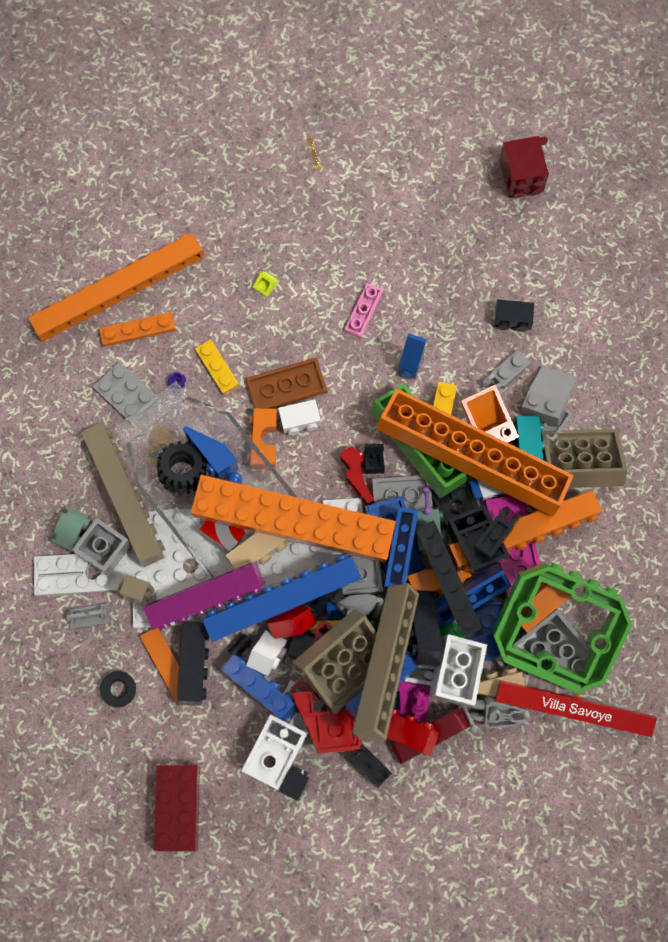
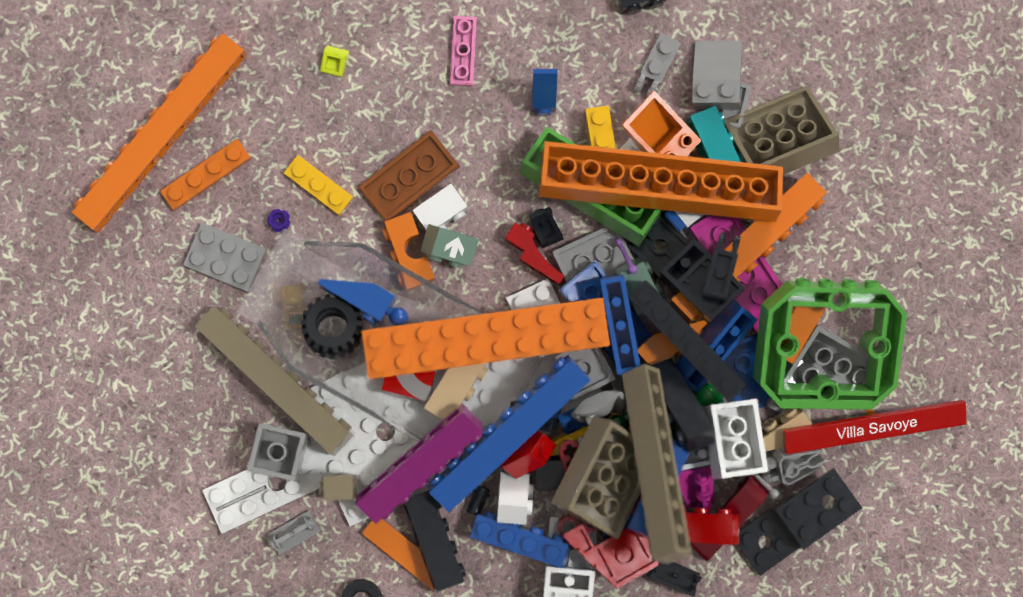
camera: 25 degrees left, 10 degrees up
(71, 528) = (232, 444): sand green brick -> none
(294, 442) = (449, 245): none -> sand green brick
(484, 760) = (797, 521): none -> black bracket

